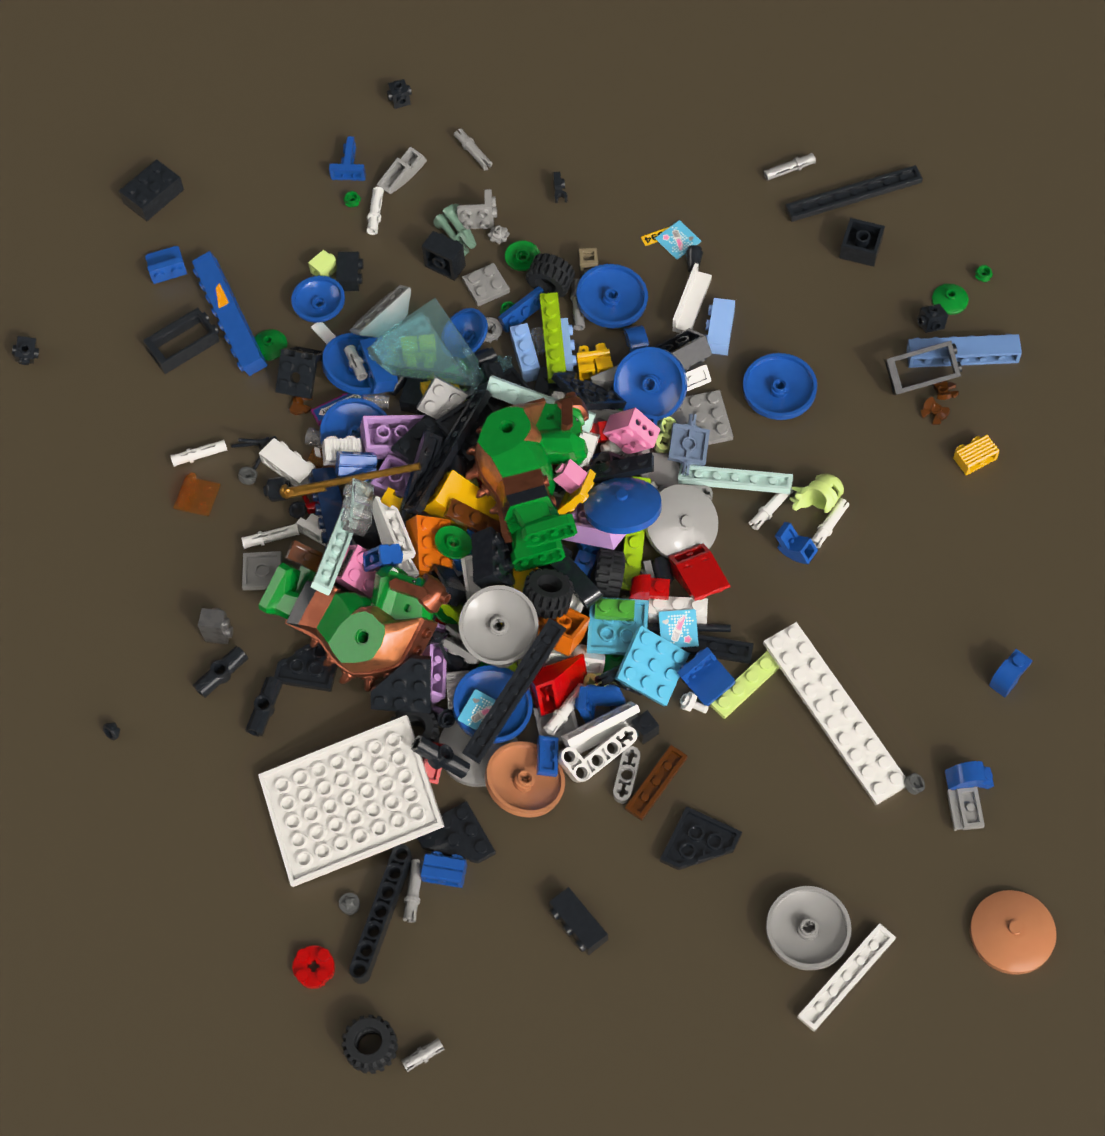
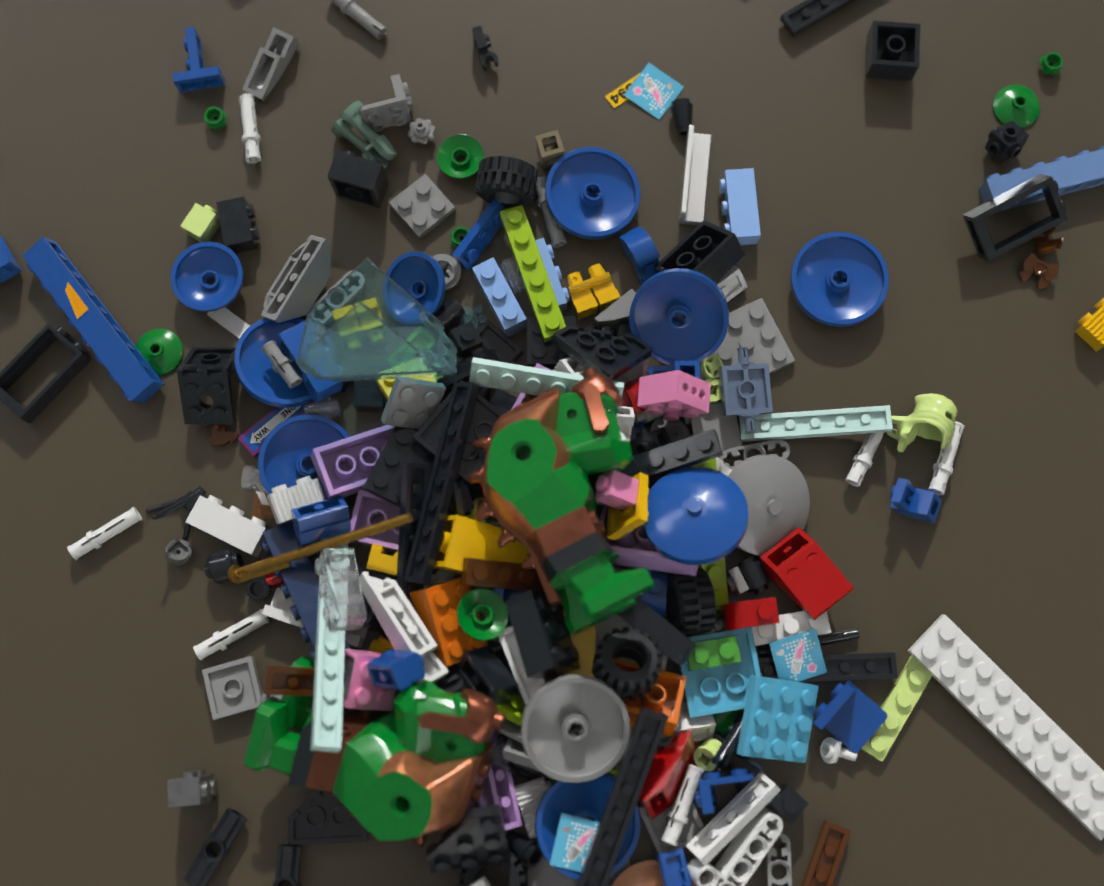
camera: 15 degrees left, 15 degrees up
(197, 495) = (118, 596): clear orange hinge -> none

